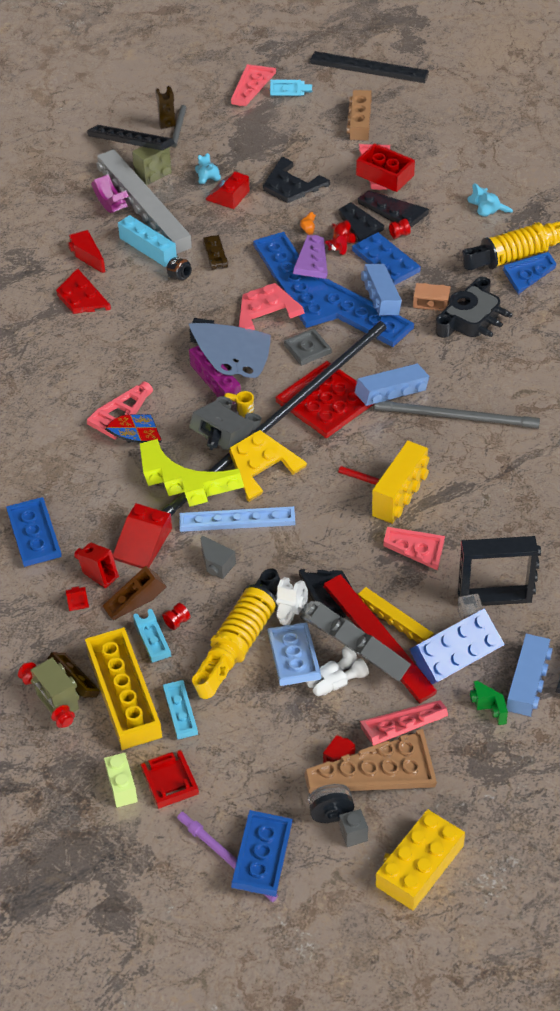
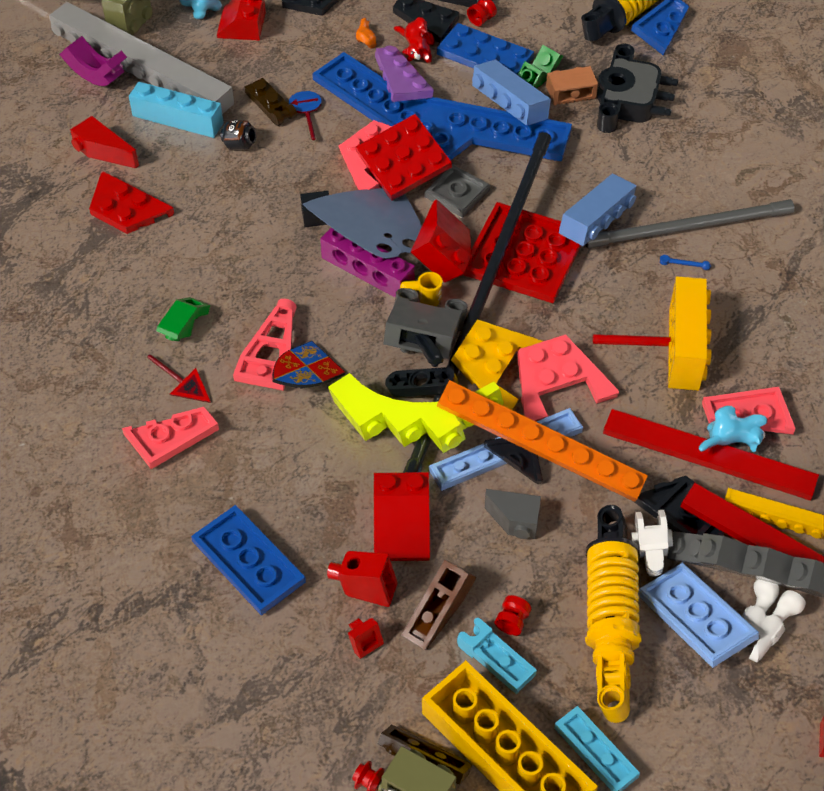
camera: 25 degrees left, 5 degrees up
(26, 445) = (164, 439): none -> coral wing
(59, 420) = (189, 388): none -> piece
(73, 375) = (180, 318): none -> green slope
(203, 459) = (404, 382): none -> black beam
(238, 259) = (306, 103): none -> blue piece
(240, 522) = (517, 457): none -> black tile
(252, 516) = (542, 441): none -> orange plate
(271, 375) = (443, 243): none -> red slope
(277, 312) = (403, 157): none -> red plate
(297, 476) = (556, 366): none -> coral wing
(372, 565) = (719, 457): none -> red tile
(390, 551) = (732, 429): none -> medium azure animal
(408, 281) = (545, 62): none -> green slope
(424, 433) = (665, 259): none -> blue hinge

